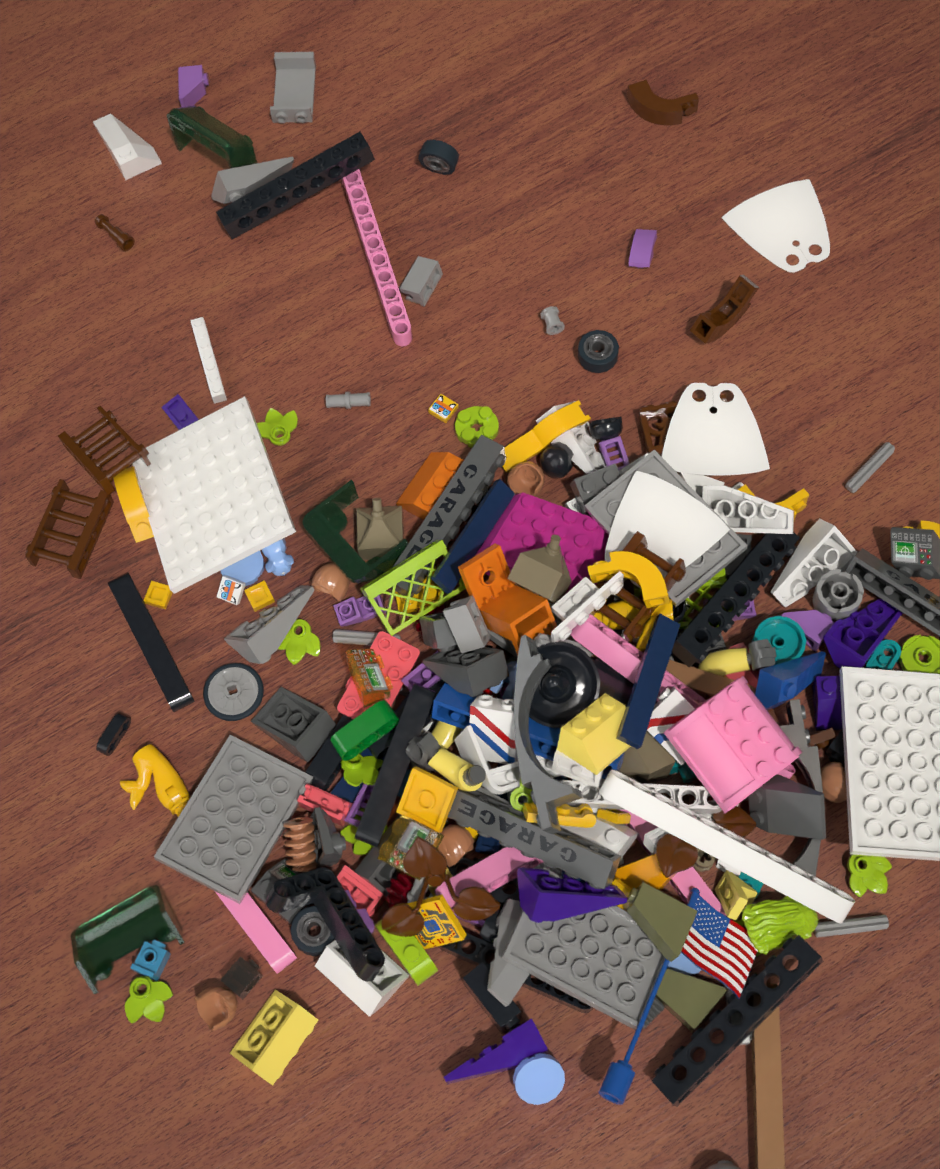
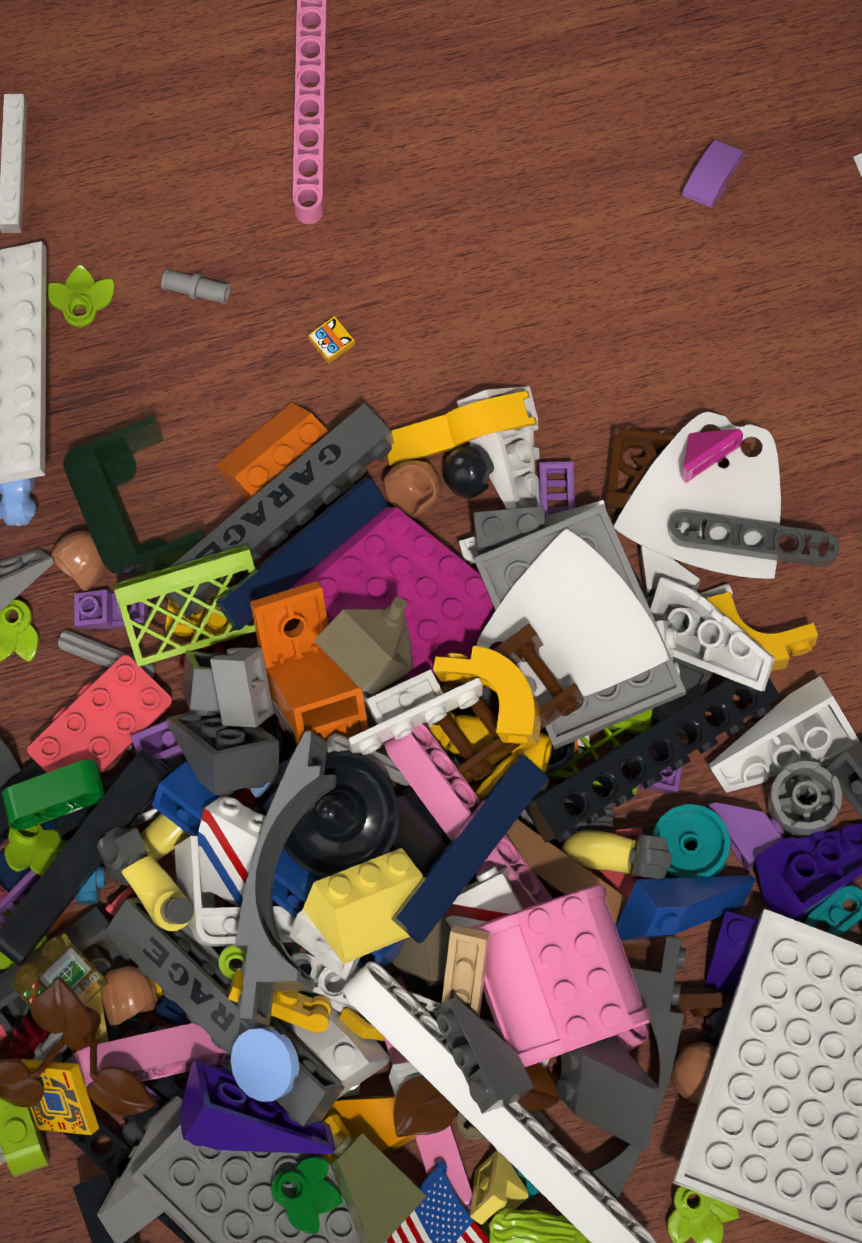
camera: 15 degrees right, 5 degrees up
(368, 676) = (82, 718): clear yellow slope -> none
(379, 529) = (175, 501): dark tan piece -> none
(421, 280) = (364, 129): light grey hinge -> none
(427, 799) = (104, 923): yellow plate -> none
(476, 415) = (367, 364): lime plate -> none
(552, 320) = (537, 249): light grey bush -> none
(566, 855) = (264, 1063): none -> light blue tile
(595, 361) = (588, 301): wheel -> none
(606, 428) = (558, 443): black hair -> none
(620, 934) = (310, 1196): none -> green plate
(677, 761) = (466, 967): none -> tan plate
(701, 403) = (707, 449): none -> dark pink slope
(707, 808) = (487, 1062): none -> dark grey slope
(727, 313) = (788, 322): reddish brown arch -> none
(758, 442) = (771, 534): none -> dark grey beam

